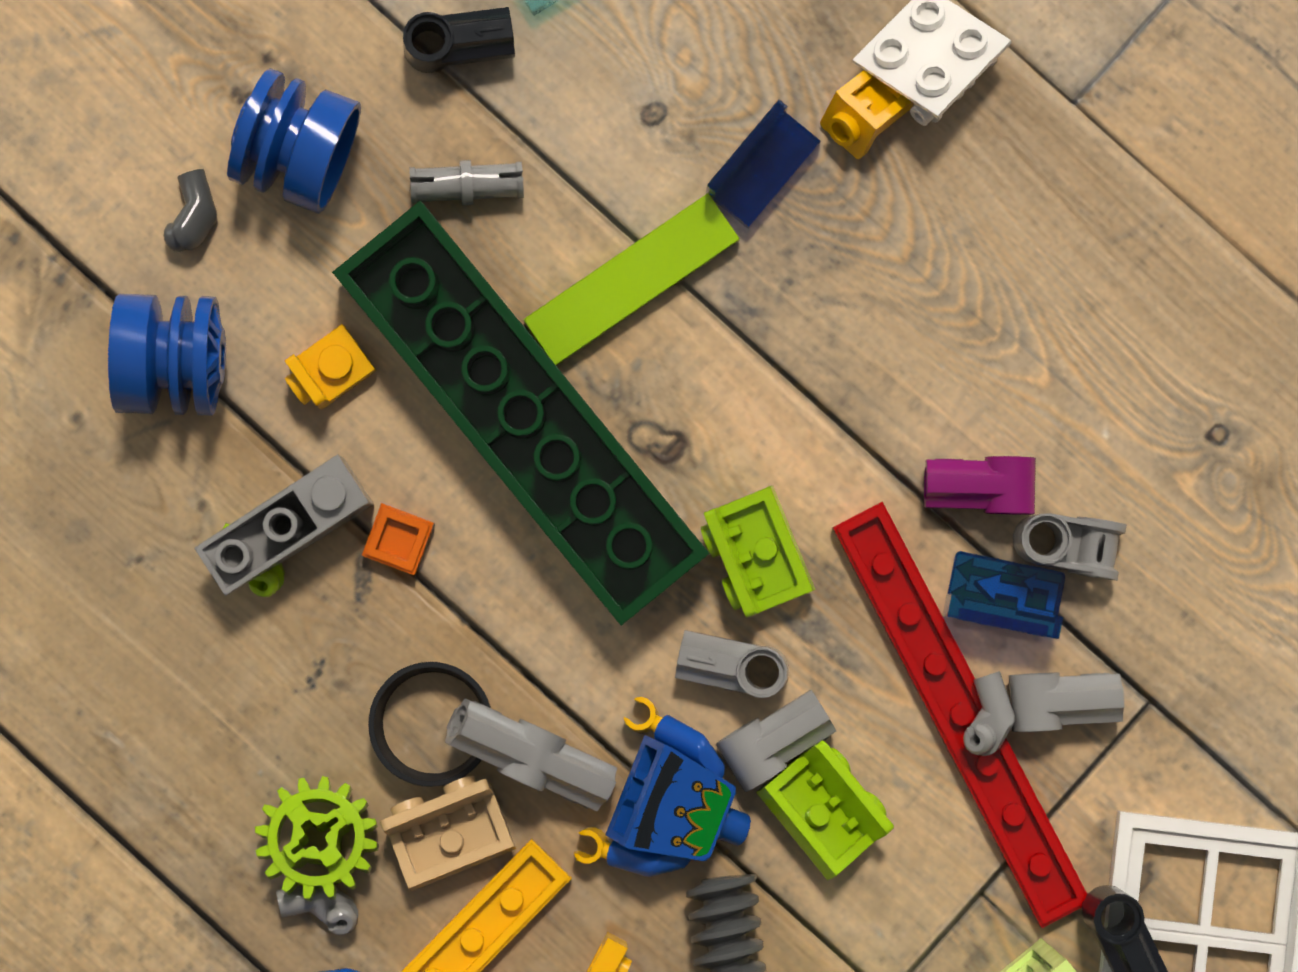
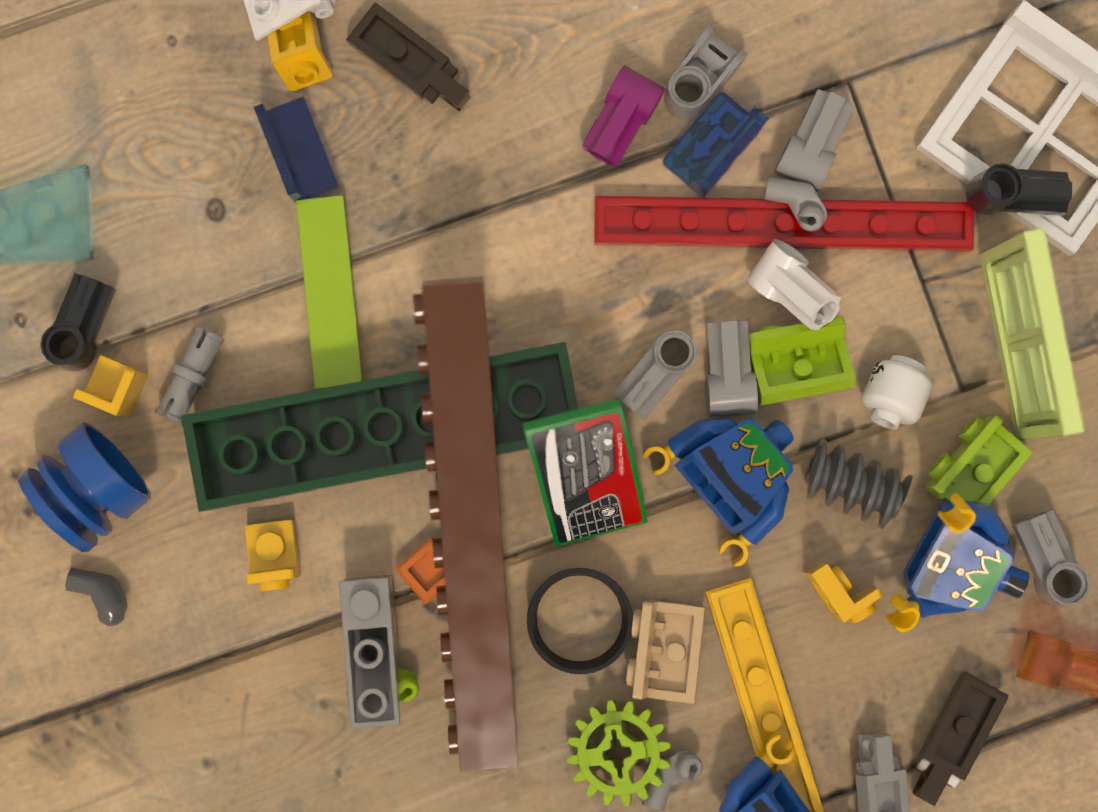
camera: 65 degrees left, 0 degrees up
(162, 354) = (189, 678): blue wheel -> none
(411, 110) = (113, 387): none -> yellow panel
(470, 556) = (470, 521): none -> reddish brown brick
(530, 755) = (643, 558): light grey piece -> none
(586, 647) = (586, 472): none -> slope
(756, 552) = (583, 307): lime bracket -> none
(847, 927) = (897, 392): none -> white head
(900, 747) = (786, 279): none -> white piece
(920, 227) = (407, 57): none -> dark brown hinge

